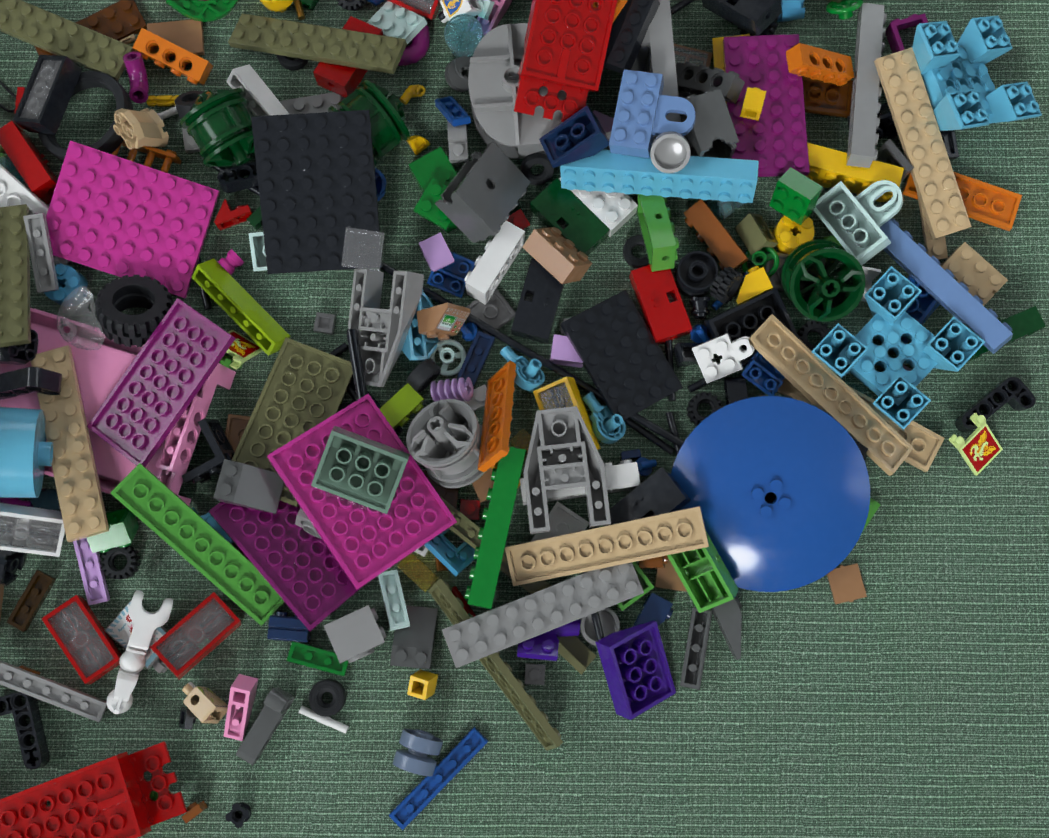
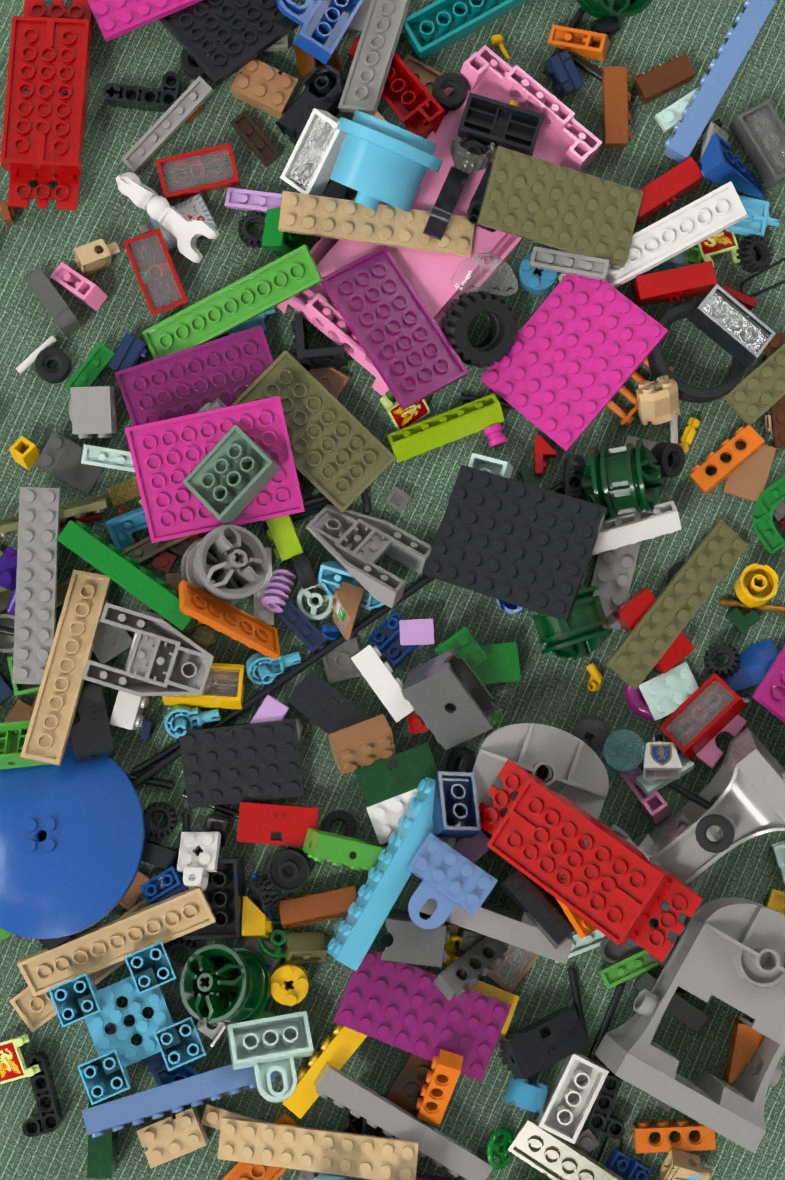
camera: 110 degrees right, 5 degrees up
(137, 77) = (719, 417): magenta cylinder -> none
(187, 718) = (89, 235): black plate -> none
(249, 487) = (264, 369): dark grey slope -> none
(356, 362) = (340, 512): black axle -> none
(363, 249) = (443, 562): clear plate -> none
(418, 143) = (538, 661): yellow tile -> none
(452, 111) = (552, 706): blue tile -> none
(458, 143) = (523, 700): light grey arch -> none
(645, 466) = (131, 739): blue plate -> none
(670, 152) = (397, 887): light grey piece -> none
(699, 334) = (232, 848): blue plate -> none
(700, 307) = (257, 859): black brick -> none
(753, 103) = (423, 998): yellow brick -> none
(795, 196) = (316, 997): green brick -> none
(891, 155) = (317, 1115): flat silver tile -> none

